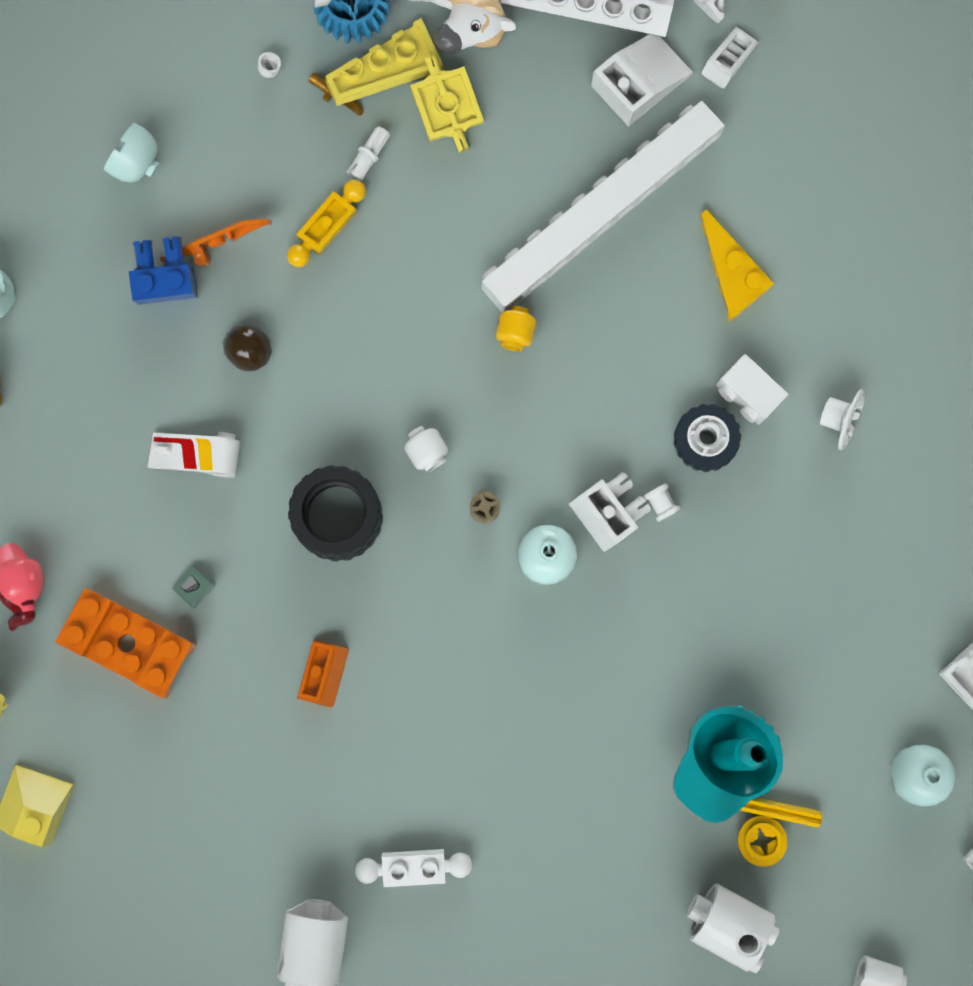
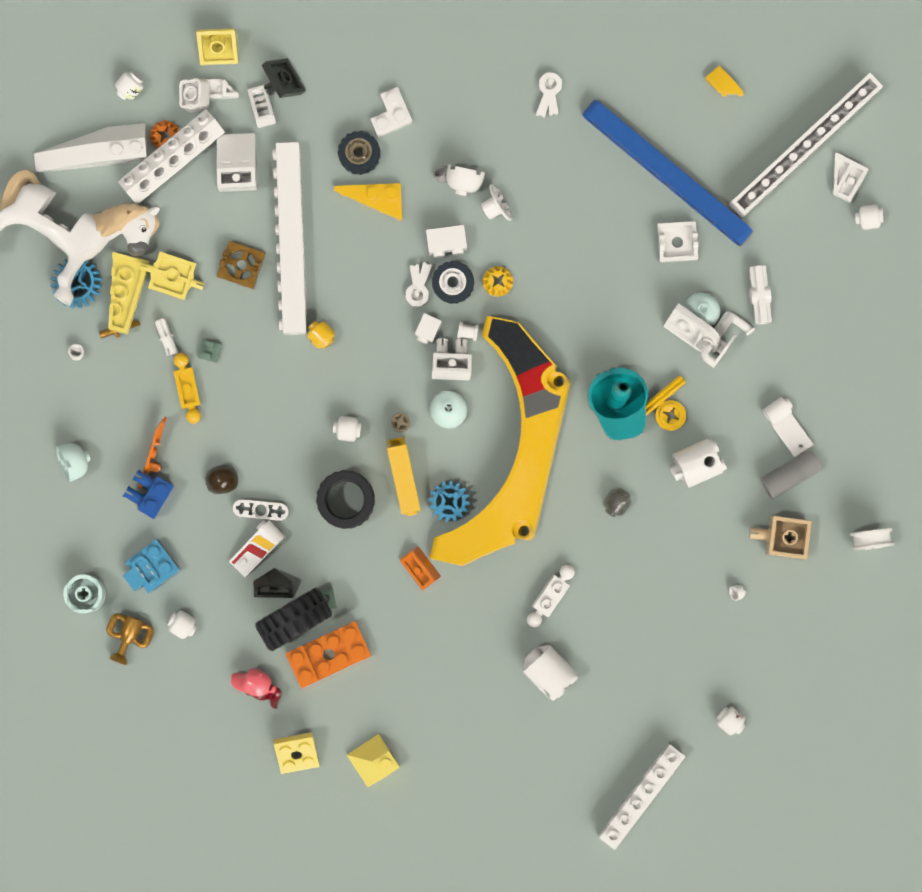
camera: 50 degrees left, 5 degrees up
(29, 434) = (181, 624): none -> white head
(72, 344) = (150, 567): none -> dark azure piece
(129, 563) = (293, 619): none -> black tyre
(162, 507) = (273, 585): none -> pearl dark grey slope
(241, 400) = (275, 507): none -> white beam
(392, 216) = (209, 351): none -> sand green tile
(420, 561) = (403, 476): none -> yellow slope
(447, 647) = (459, 493): none -> dark azure gear
(519, 728) = (523, 492): none -> yellow panel
(528, 195) = (235, 247): none -> pearl gold piece
(599, 860) = (617, 502): none -> clear smoke head
(625, 451) = (427, 329): none -> white brick
(658, 406) = (417, 293): none -> white piece
(741, 500) = (497, 272): none -> yellow gear
(771, 191) = (356, 141): none -> black wheel
(783, 51) = (282, 79): none -> pearl dark grey tile
(824, 324) = (440, 174): none -> light grey hinge
(843, 352) = (463, 180): none -> white cylinder
(847, 218) = (396, 115): none -> white plate
(898, 803) = (703, 336): none -> white plate

